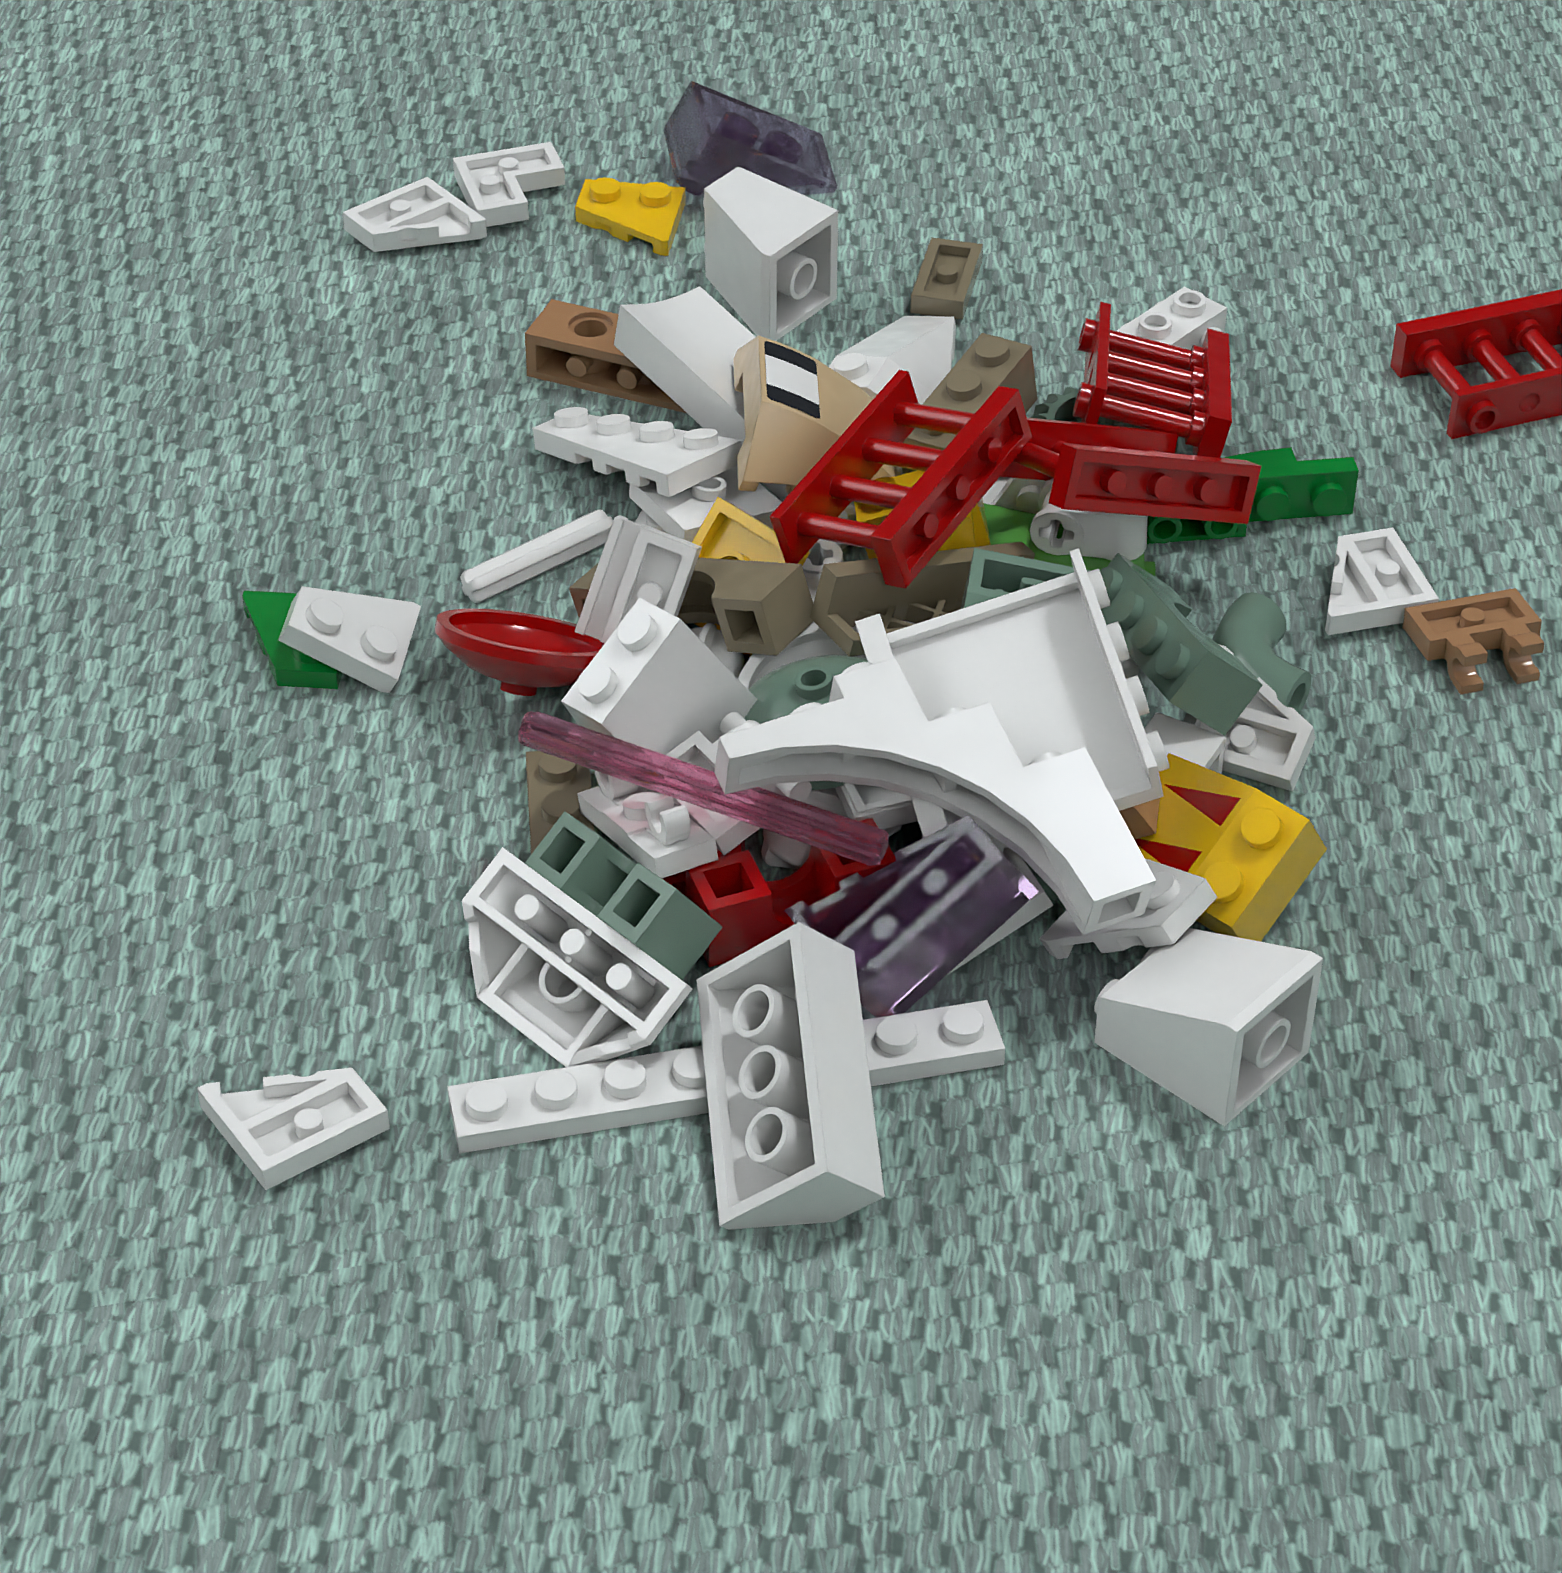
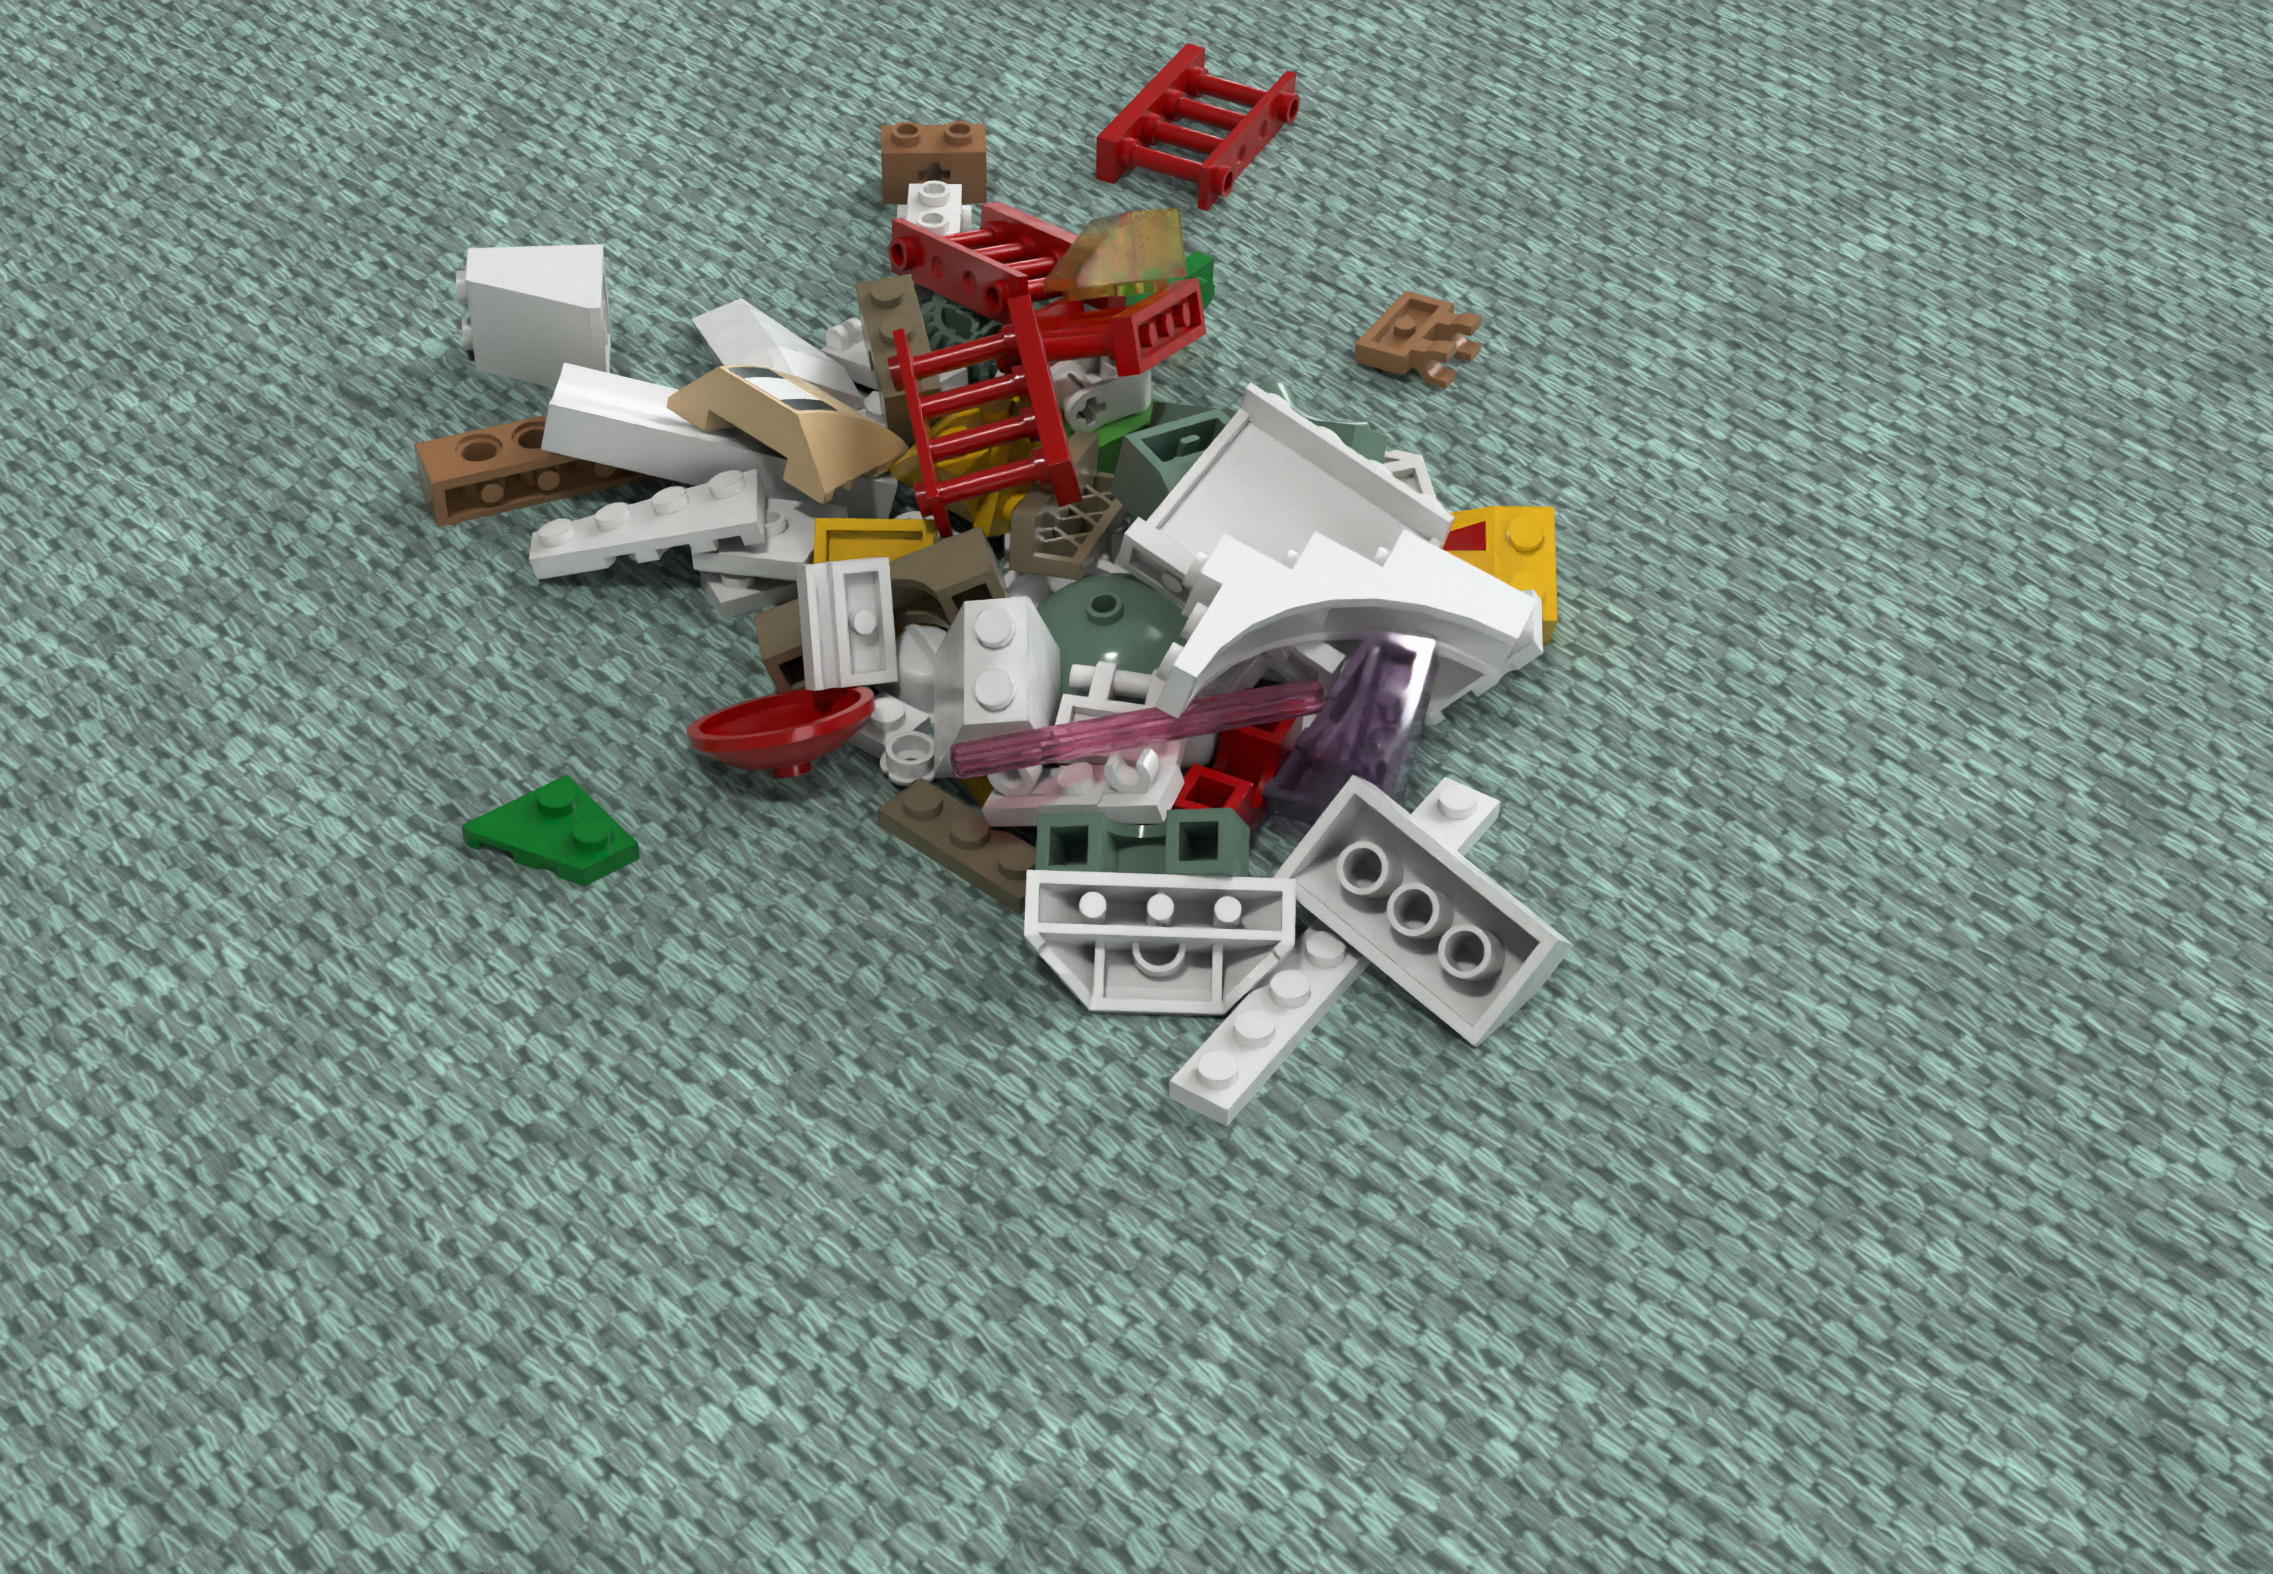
camera: 45 degrees left, 0 degrees up
(295, 1120) = (1091, 1184): white wing -> none
(352, 633) = (620, 801): white wing -> none
(414, 218) = (159, 444): white wing -> none
(496, 180) = (196, 376): white plate -> none
(536, 556) = (665, 661): white axle -> none
(632, 209) = (343, 345): yellow wing -> none
(718, 133) = (377, 248): slope -> none
(946, 278) = (693, 271): dark tan plate -> none
(1195, 405) = (1121, 250): none -> clear yellow slope
(1212, 1017) = (1611, 689): white slope -> none
(1252, 282) = (933, 153): none -> medium nougat brick
(1374, 582) = (1304, 338): white wing -> none

